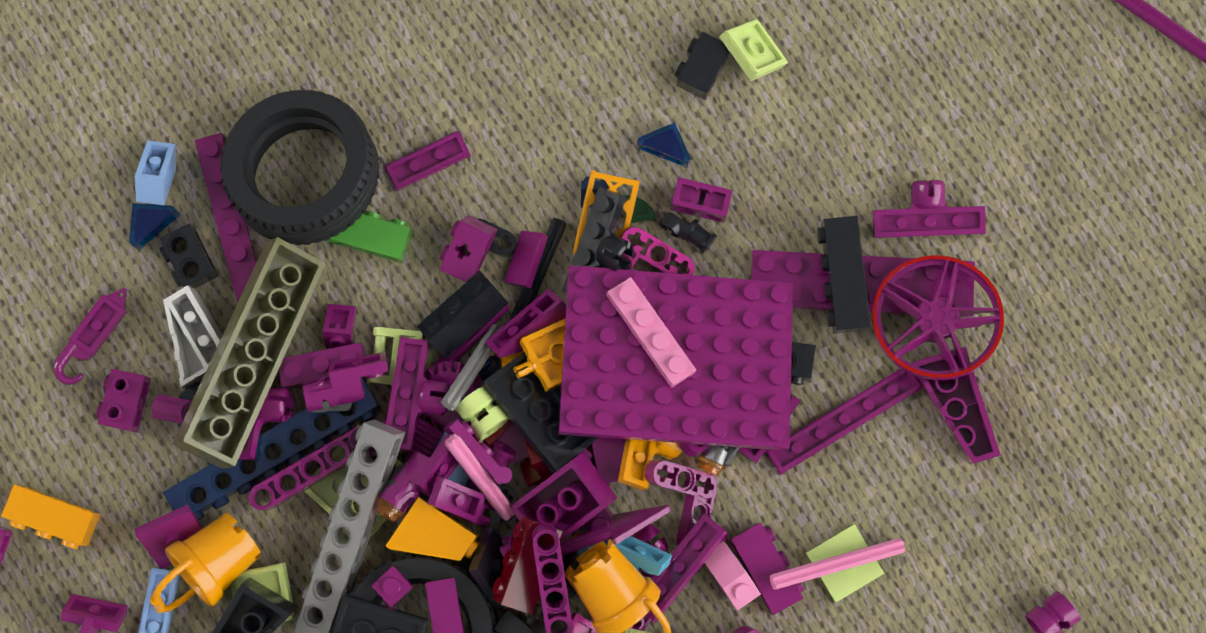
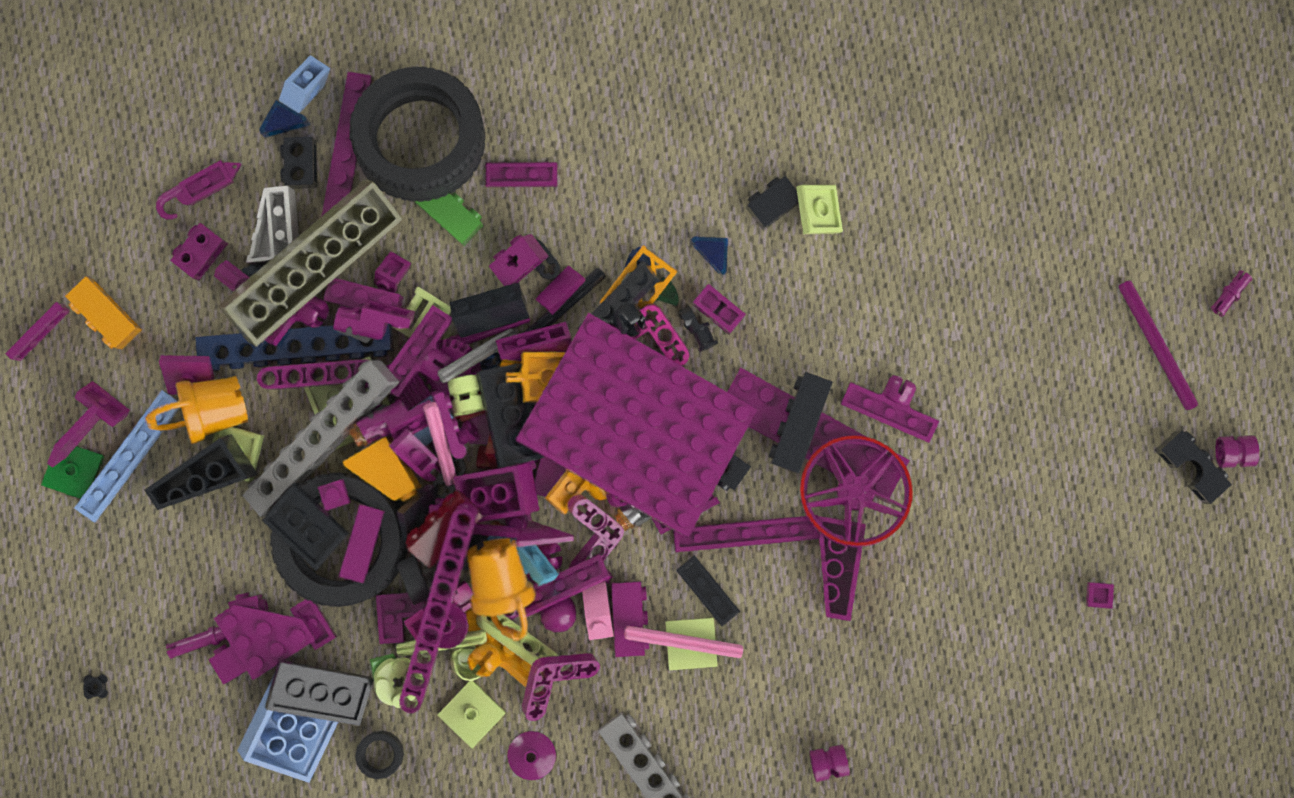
camera: 30 degrees right, 5 degrees up
(651, 332) = (625, 396): bright pink plate -> none
(692, 602) = (559, 616): none -> magenta hair
(834, 498) = (708, 591): none -> black tile

